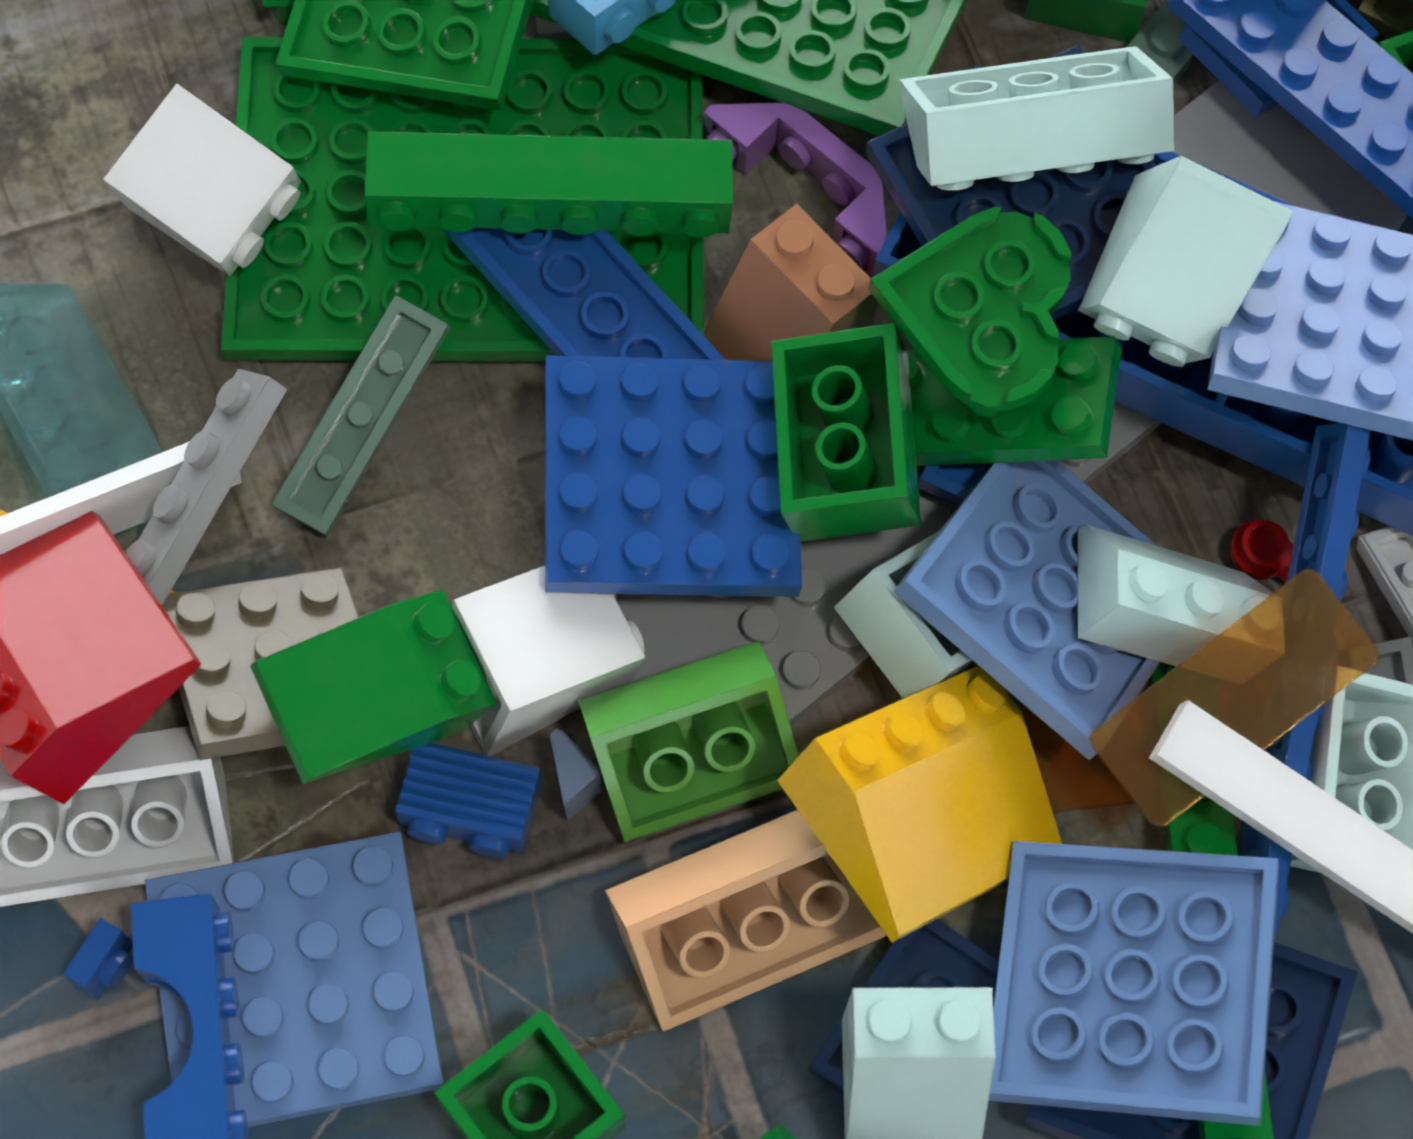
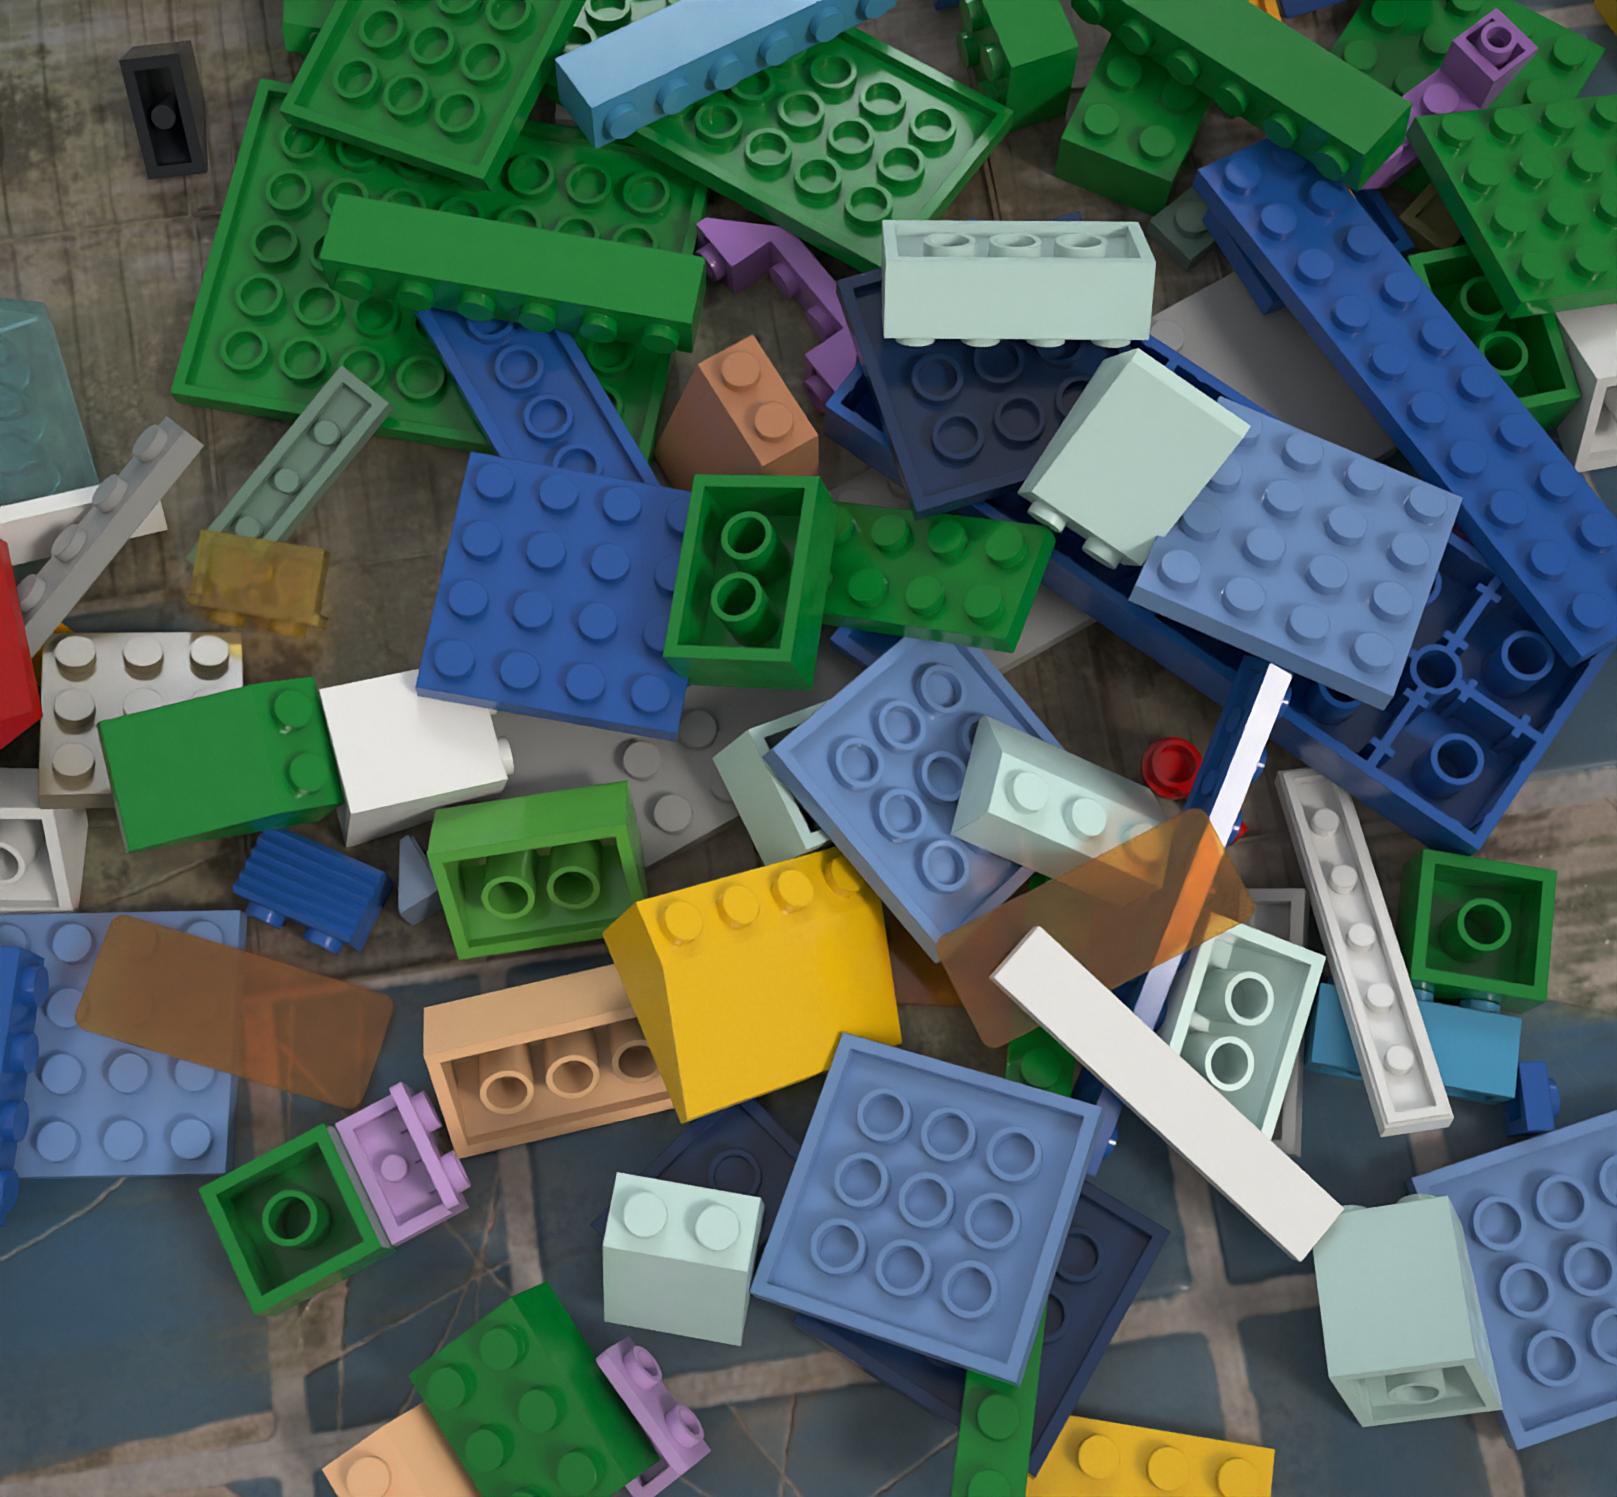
camera: 15 degrees right, 5 degrees up
(148, 61) = (167, 108): none -> black slope
(204, 181) = (176, 219): white slope -> none
(355, 516) = (259, 580): none -> clear yellow bracket
(421, 927) = (234, 1012): none -> clear orange piece
(620, 1039) = (403, 1163): none -> lavender bracket
(983, 306) = (913, 473): green plate -> none

